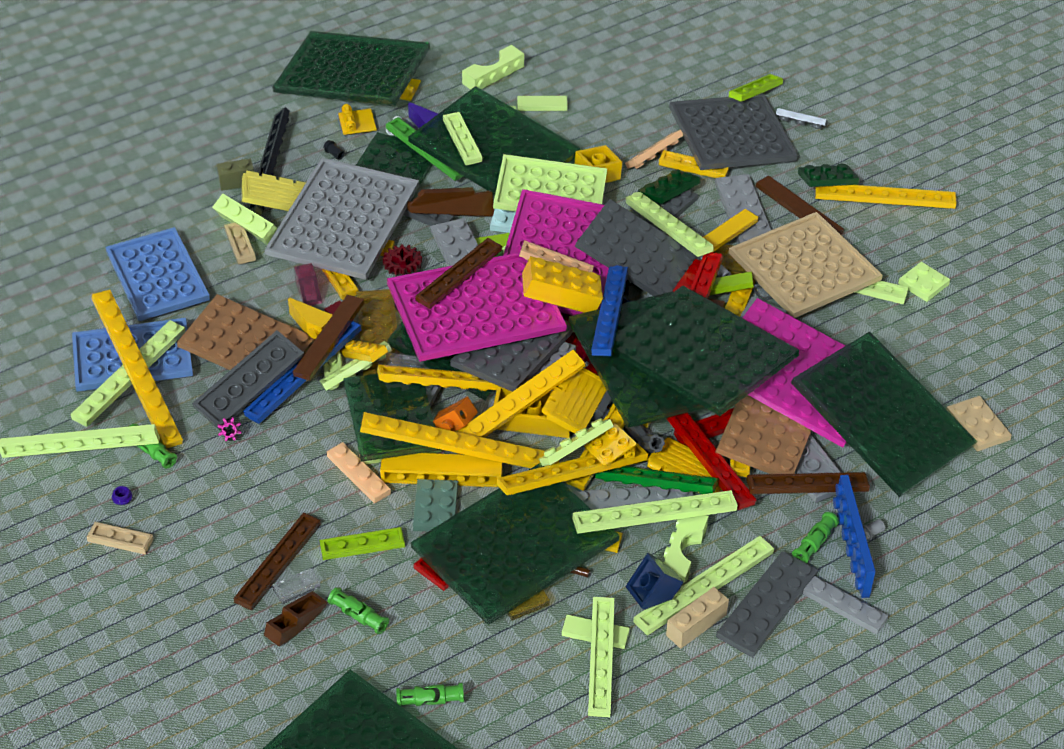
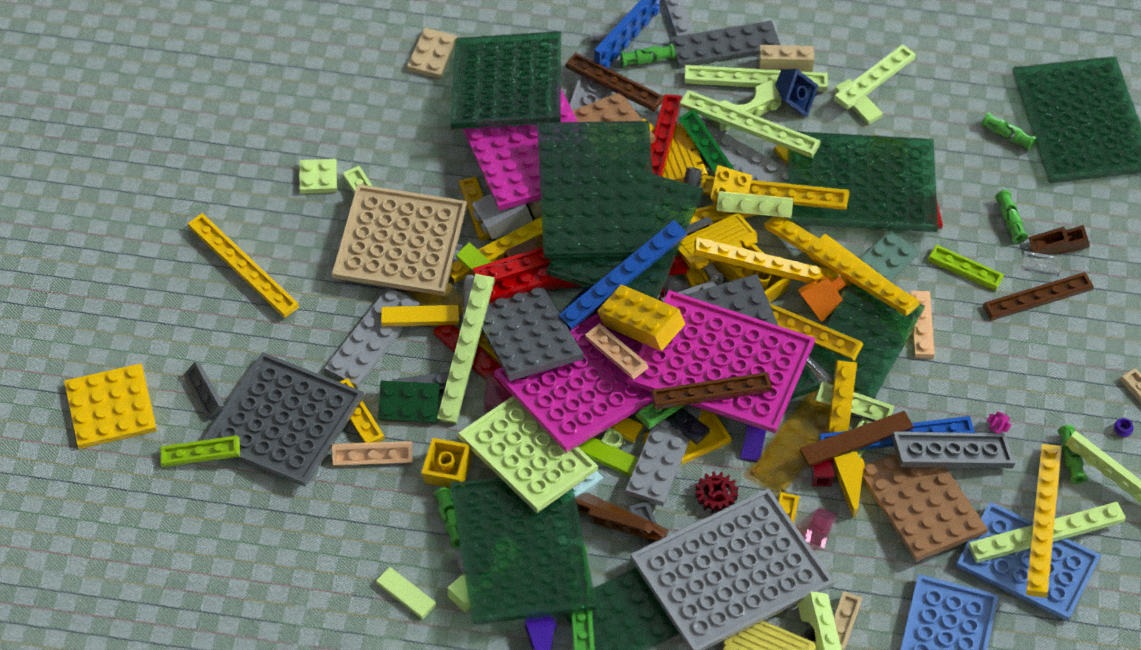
camera: 140 degrees left, 10 degrees up
(462, 138) = (553, 558): yellowish green plate -> none
(790, 200) = (323, 311): reddish brown tile -> none
(828, 175) = (265, 312): dark green plate -> none
(844, 84) = (110, 406): none -> yellow plate

